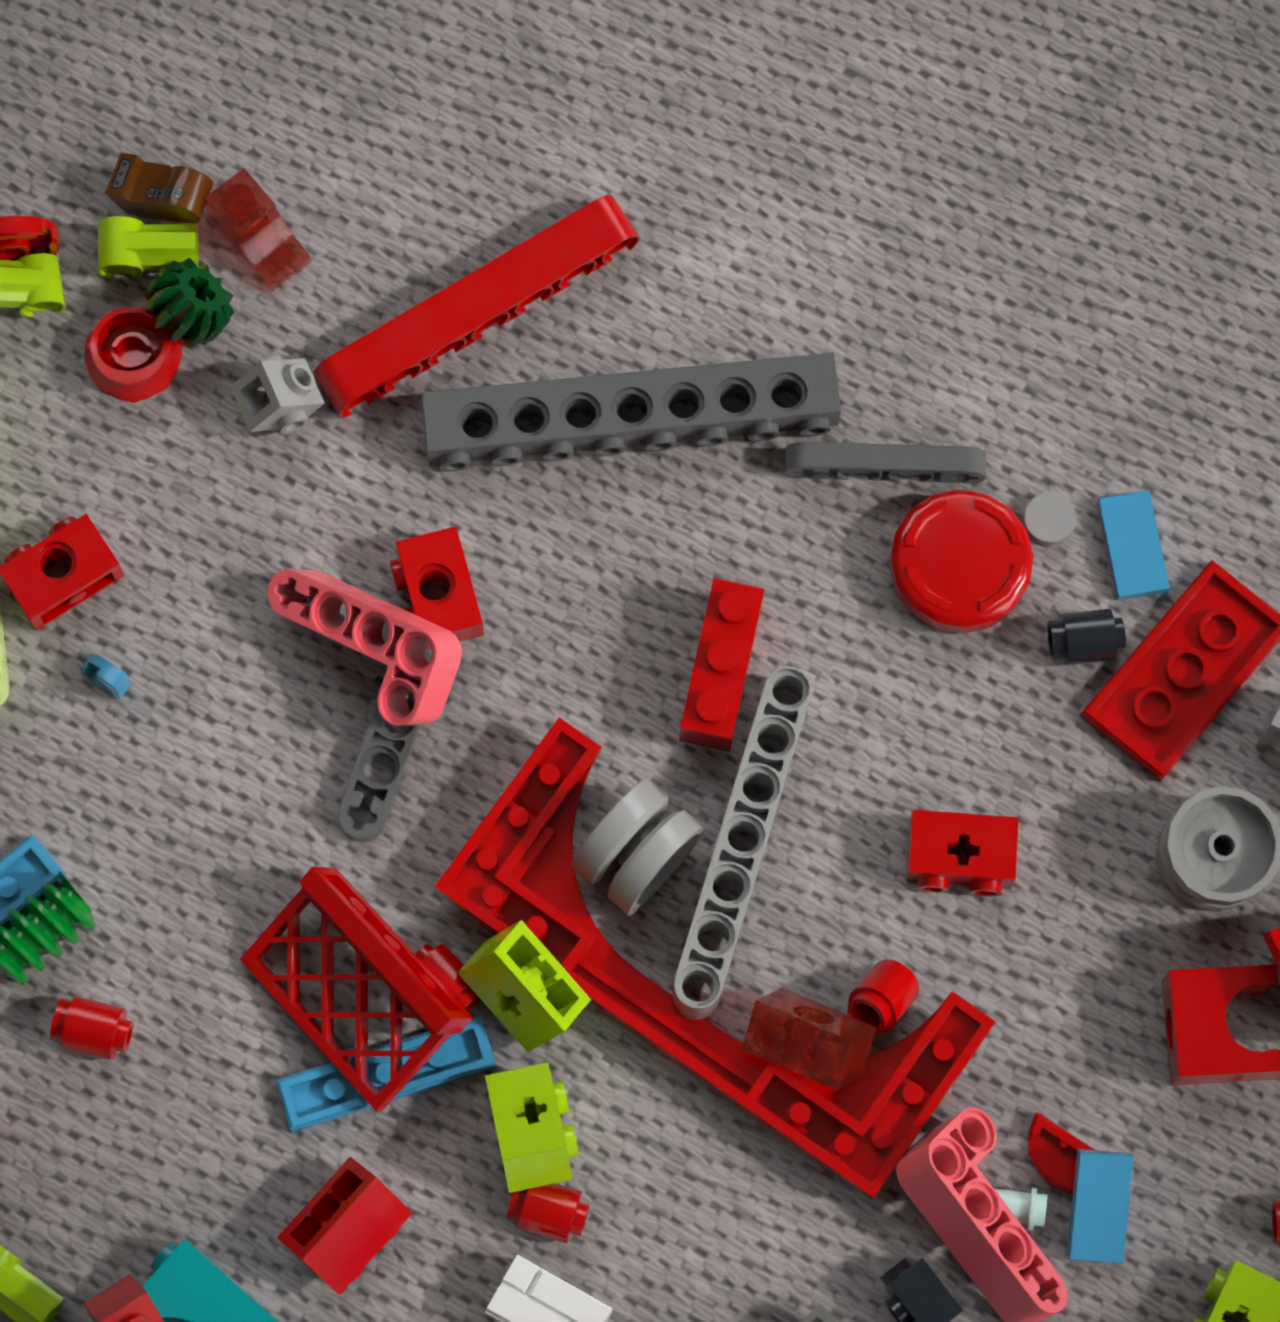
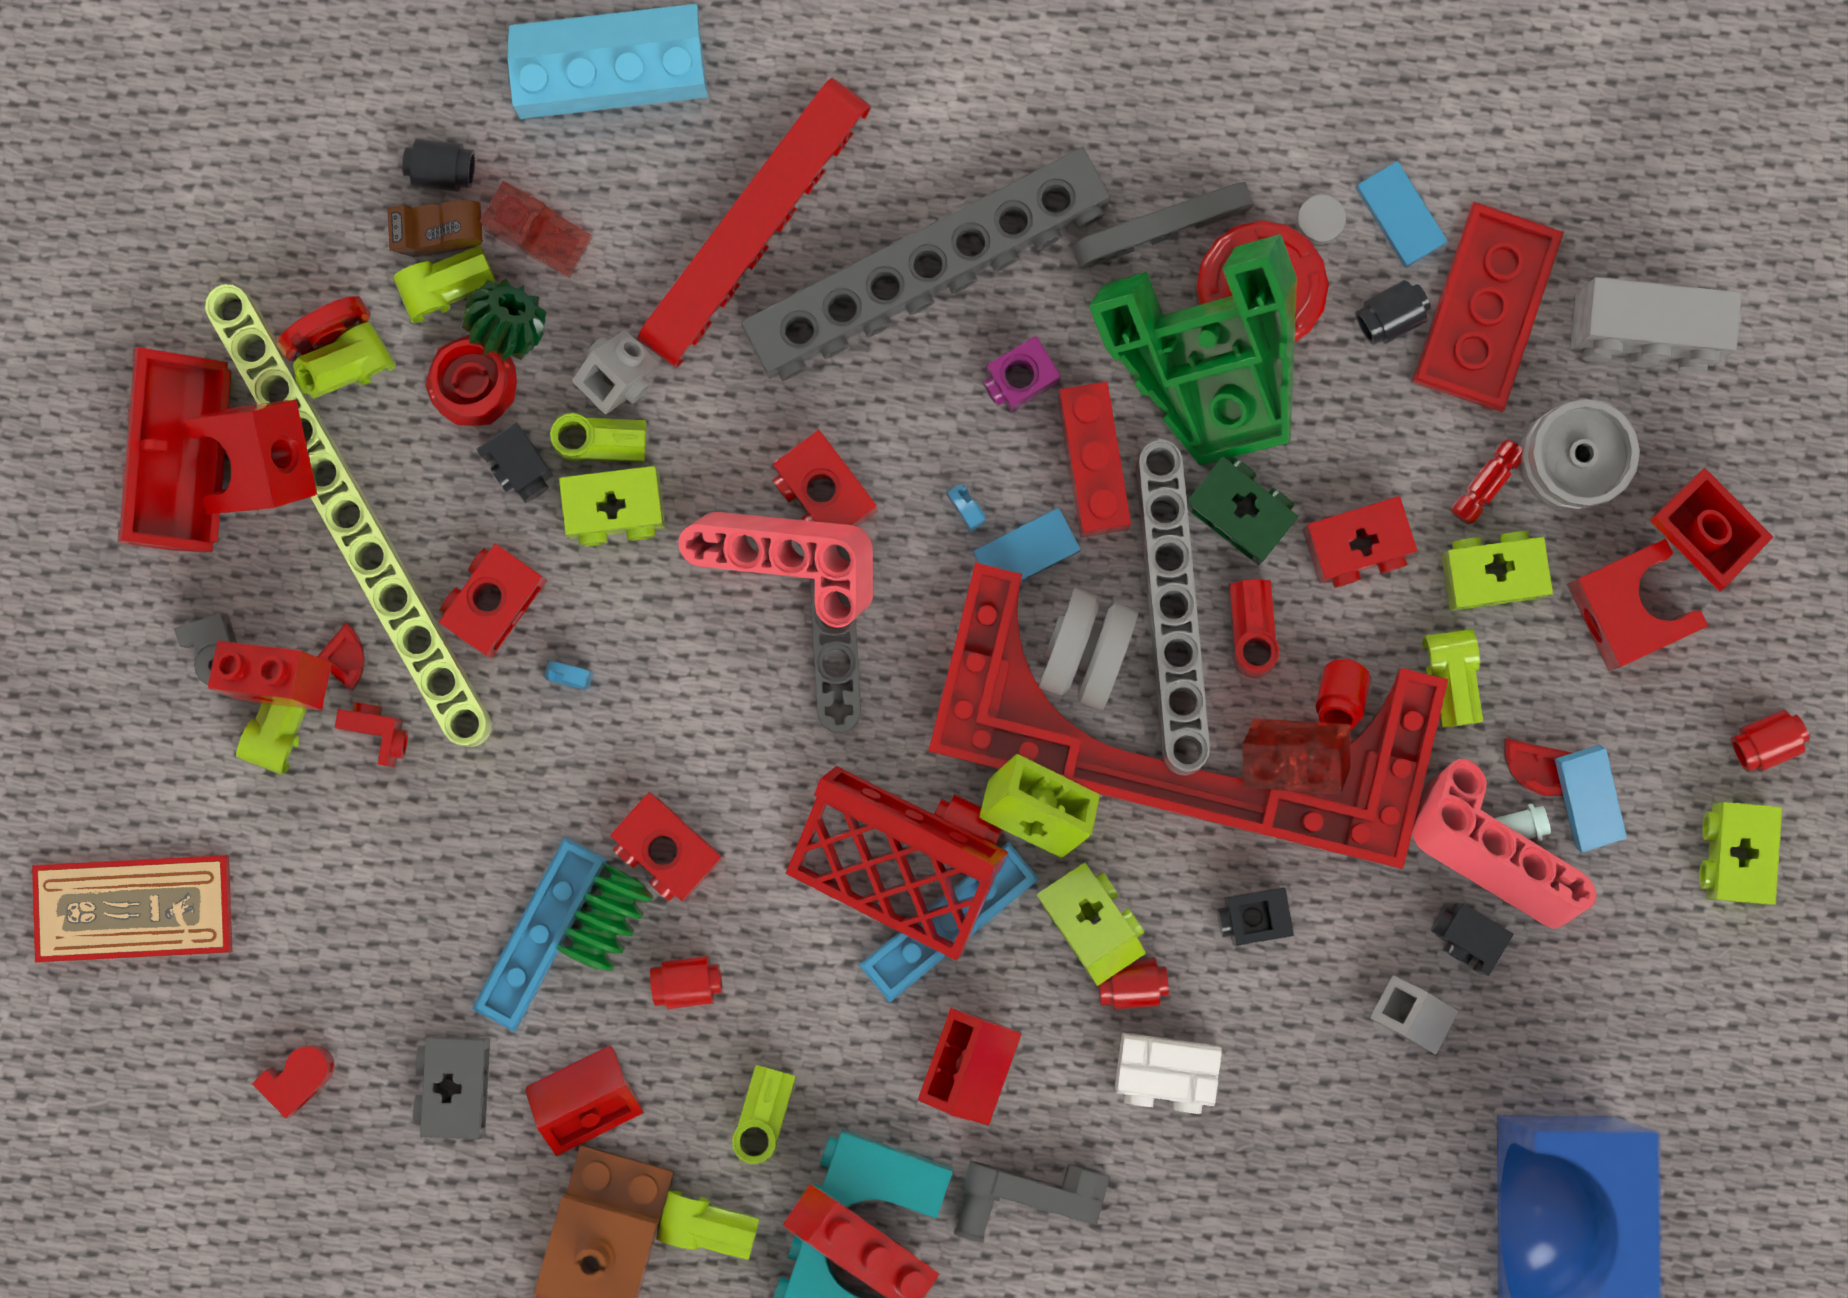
camera: 20 degrees left, 10 degrees up
(117, 1188) = (764, 1108): none -> lime piece
(127, 852) = (653, 820): none -> red brick
(143, 446) = (517, 463): none -> black brick
(189, 134) = (439, 165): none -> black brick
(200, 503) = (586, 494): none -> lime brick
(238, 458) = (605, 441): none -> lime piece
(395, 99) = (606, 61): none -> medium azure slope
(575, 666) = (966, 508): none -> dark azure tile
(626, 729) = (1031, 546): none -> dark azure tile
(694, 535) = (1032, 357): none -> magenta brick
(722, 1180) = (1274, 921): none -> black brick
(818, 893) = (1253, 623): none -> red piece
(853, 802) = (1250, 535): none -> dark green brick
(883, 619) = (1216, 366): none -> green wedge
(1015, 1009) = (1456, 658): none -> lime piece
(1112, 957) = (1525, 576): none -> lime brick
(1118, 845) = (1488, 482): none -> red axle

